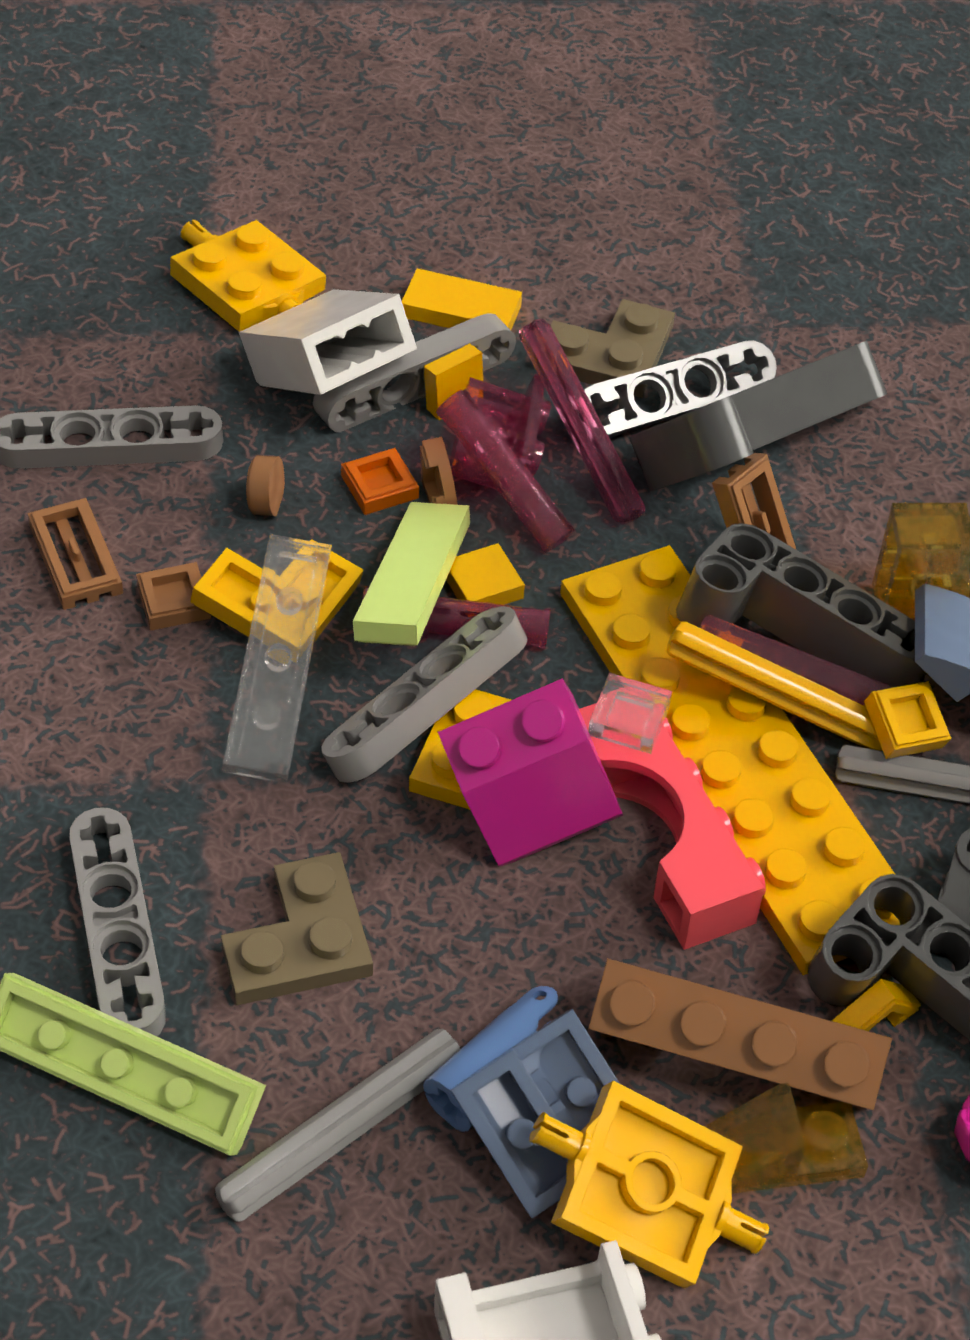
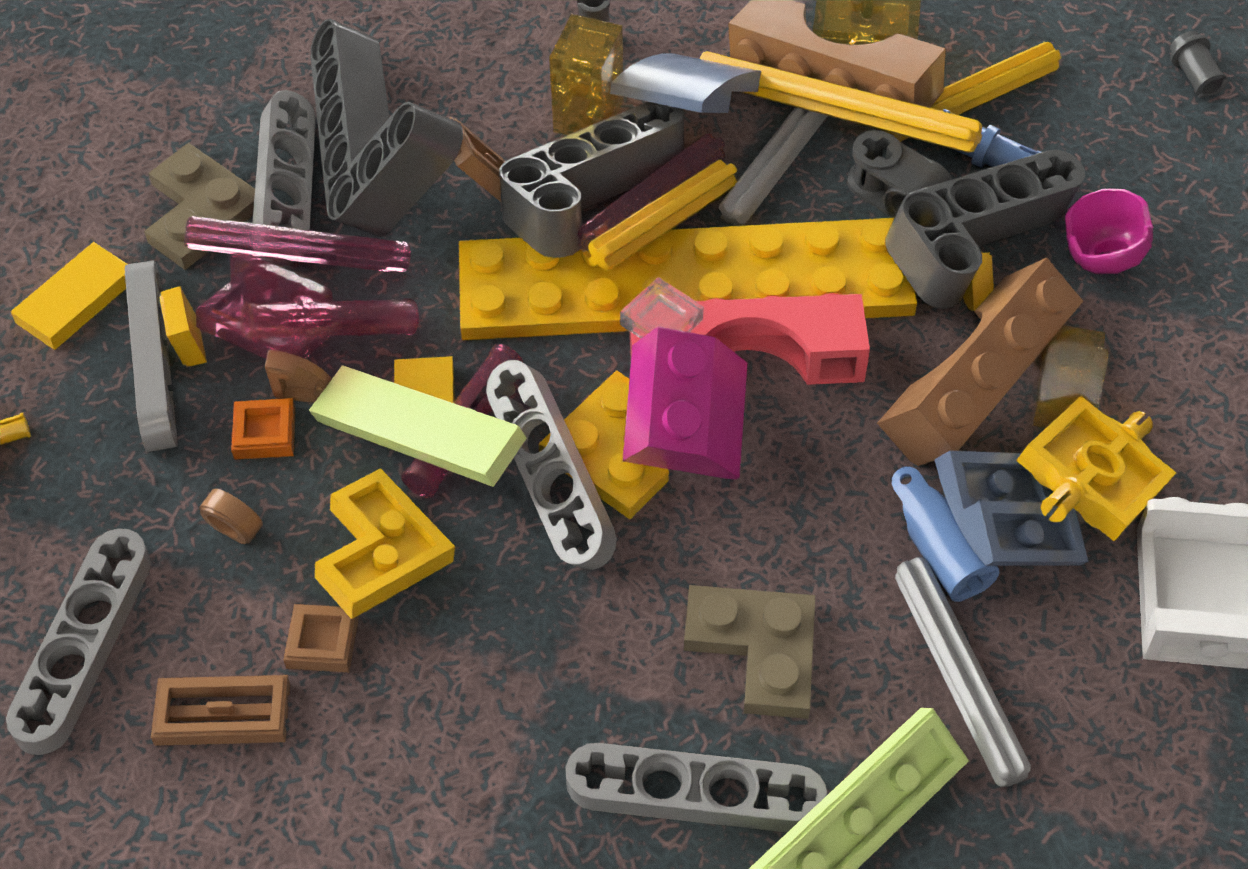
camera: 65 degrees left, 5 degrees up
(277, 659) = (461, 562): clear tile -> none
(328, 340) = (94, 400): white brick -> none
(907, 720) = (726, 151): yellow tile -> none

